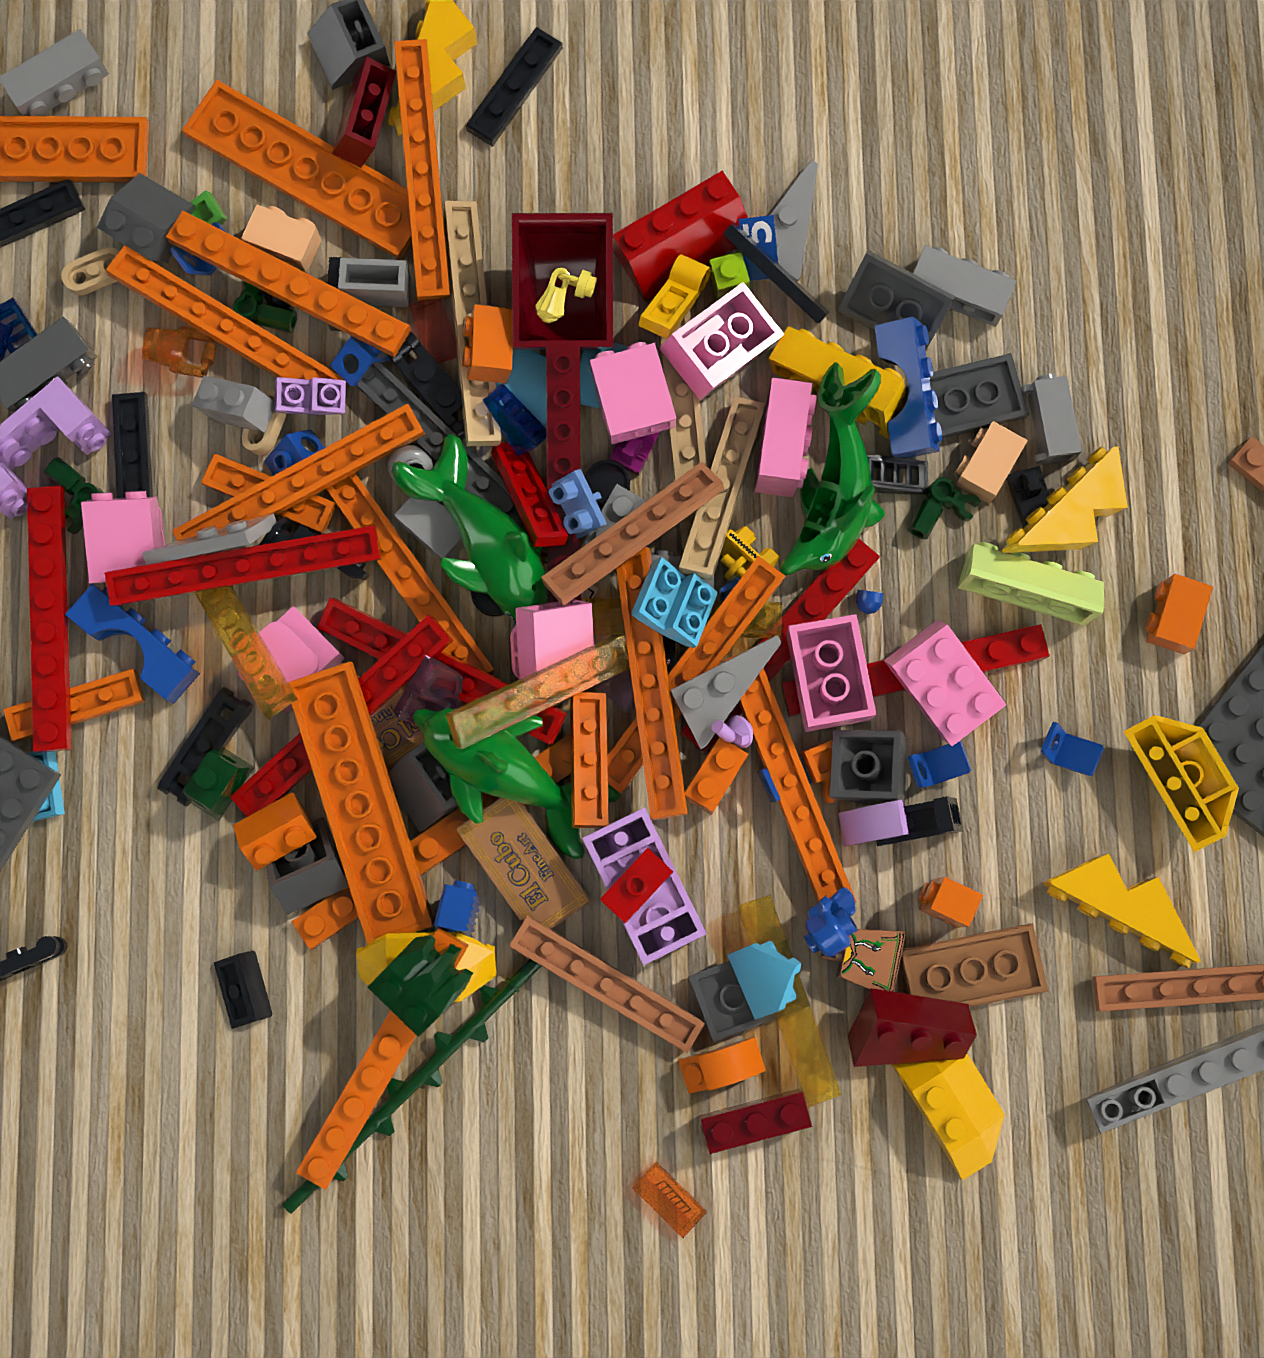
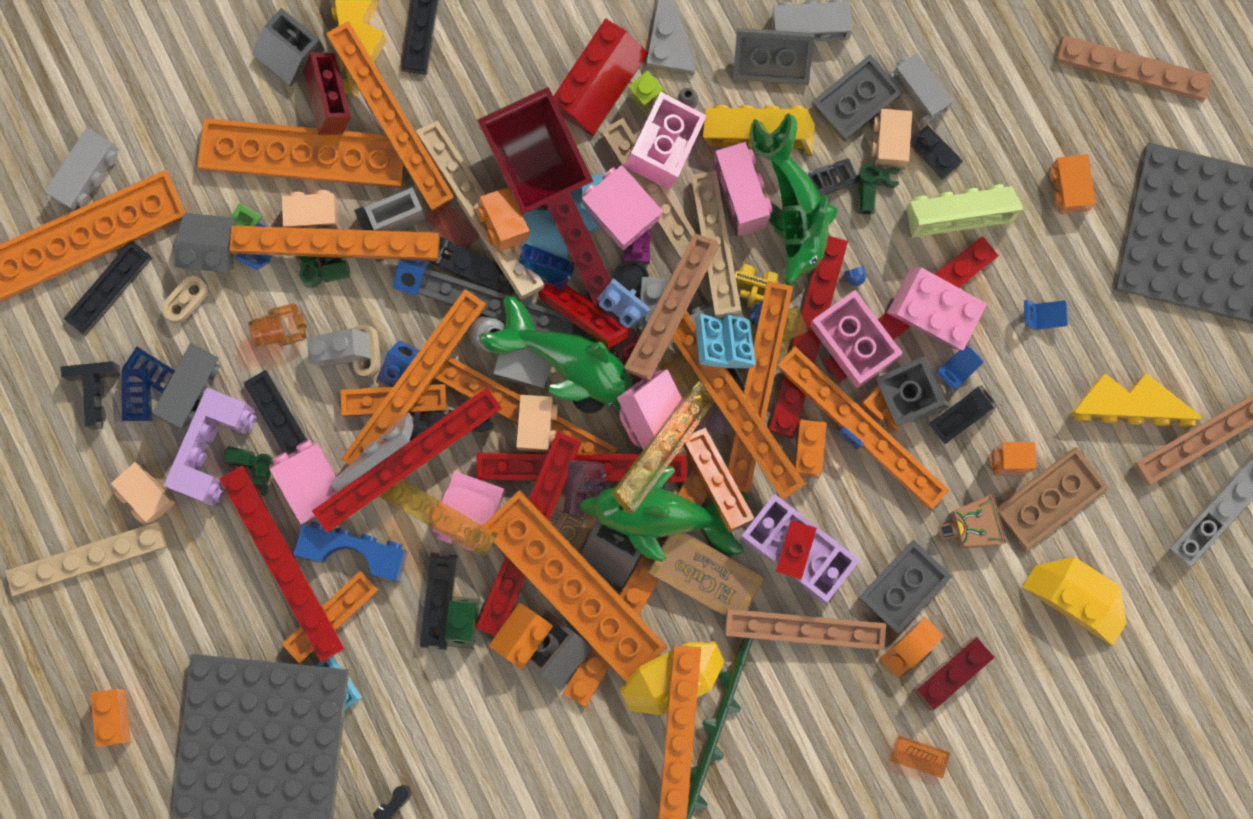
camera: 25 degrees left, 0 degrees up
(214, 318) = (303, 295): orange plate -> none
(243, 989) = (551, 758): black slope -> none
(310, 397) = (390, 316): lavender slope -> none
(412, 594) = (536, 423): none -> light nougat brick
(421, 983) = (682, 687): dark green plate -> none
(458, 908) = (678, 626): blue brick -> none
(551, 304) = (537, 169): light yellow piece -> none
(675, 297) = (617, 124): yellow plate -> none
(718, 690) = (783, 391): light grey wing -> none
(736, 730) = (809, 411): lavender plate -> none
(762, 231) = (657, 59): blue sticker -> none
(765, 977) = (913, 571): medium azure slope -> none
(776, 273) = (678, 73): black tile -> none
(777, 312) = (692, 101): none -> dark grey hose
(796, 1019) = (936, 579): clear yellow plate -> none
(831, 923) = (940, 512): blue head -> none
(873, 823) = (934, 429): lavender slope -> none
(909, 1029) = (1028, 559): dark red wedge -> none
(914, 428) = (829, 139): blue arch -> none
(1069, 516) = (965, 147): yellow slope -> none
(1187, 776) = (1133, 295): yellow wedge -> none

